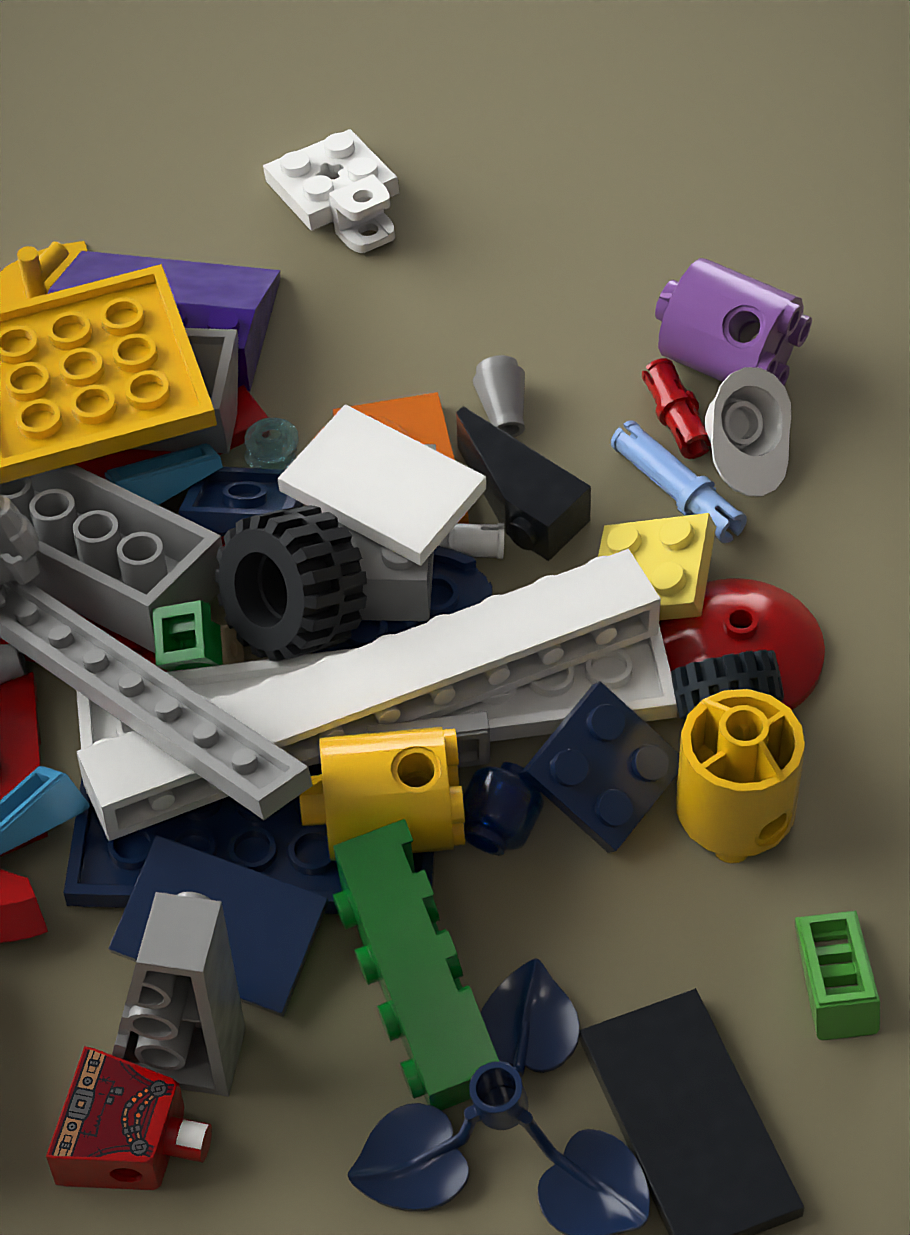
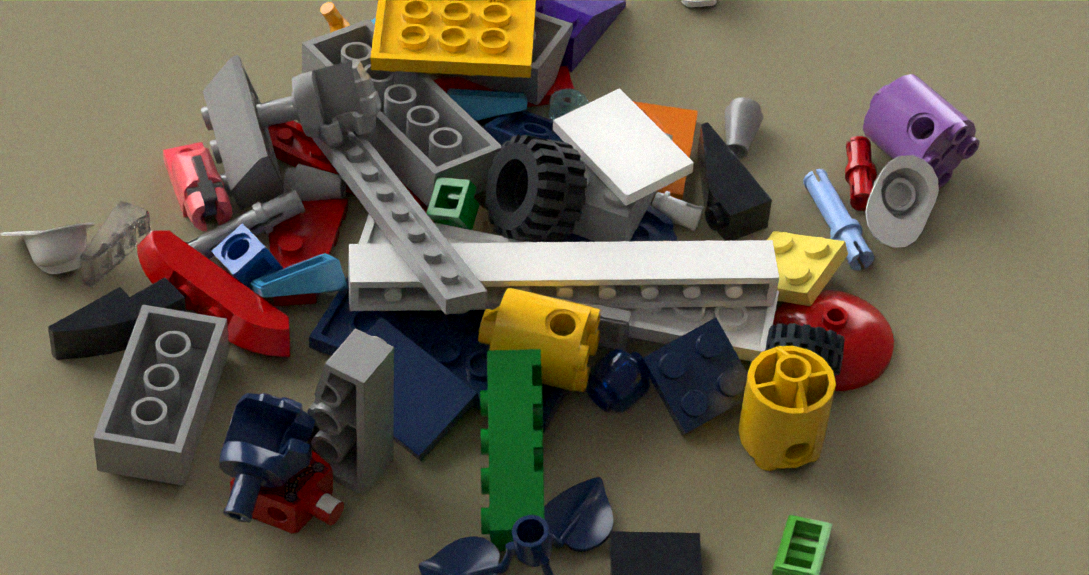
camera: 15 degrees right, 5 degrees down
(80, 1098) = (263, 448): none -> dark blue piece

